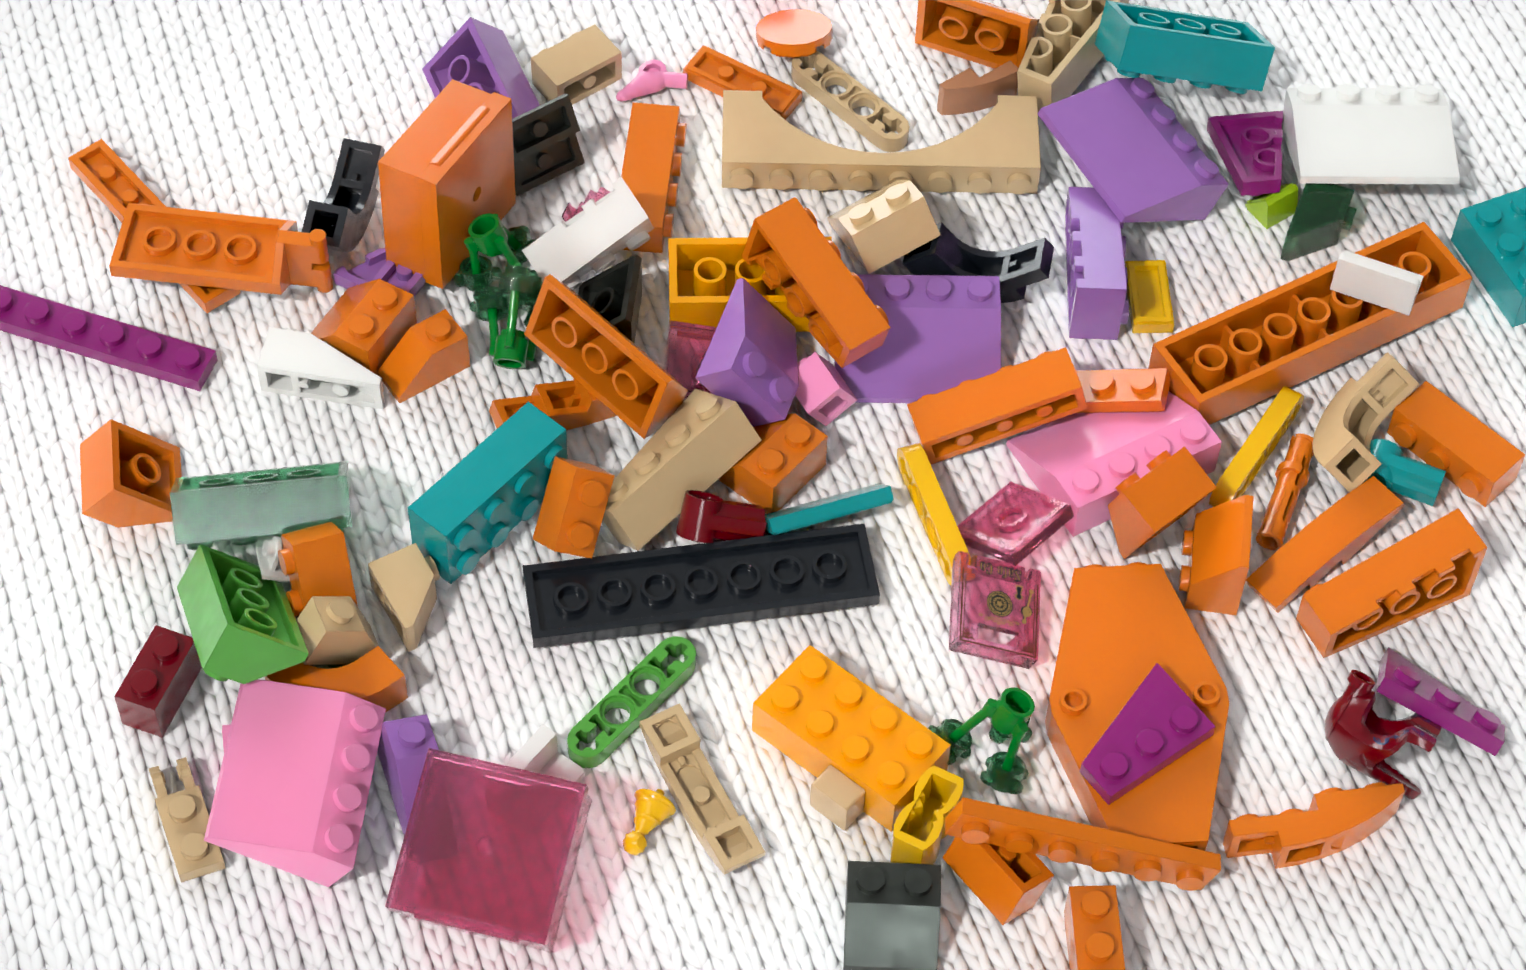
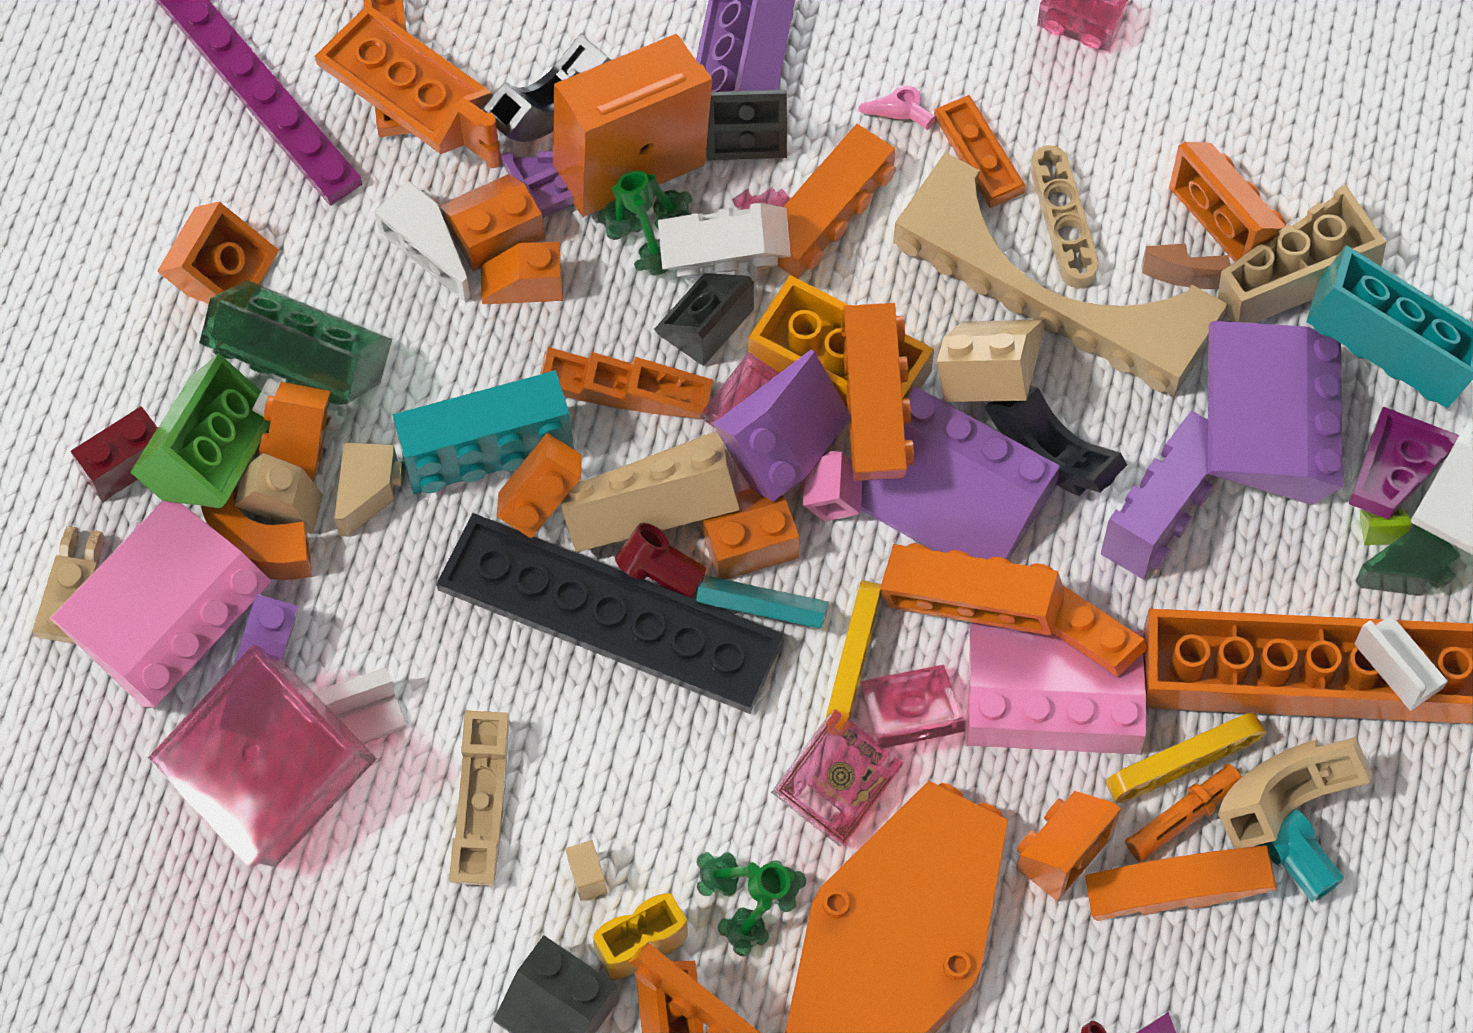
camera: 35 degrees right, 10 degrees up
(491, 304) = (612, 256): plant -> none
(577, 66) = (839, 61): tan brick -> none
(602, 359) = (657, 359): orange slope -> none
(636, 704) = (481, 678): bright green beam -> none
(650, 811) = (428, 793): yellow piece -> none
(794, 32) = (1056, 124): tile -> none
(832, 718) = (633, 819): light orange brick -> none
(1145, 737) = (872, 973): magenta wing -> none
(1149, 297) = (1200, 553): yellow tile -> none
(1157, 499) = (1043, 759): orange slope -> none
(1394, 585) = (1206, 959): orange wedge -> none
(1455, 442) = (1374, 856): orange brick -> none

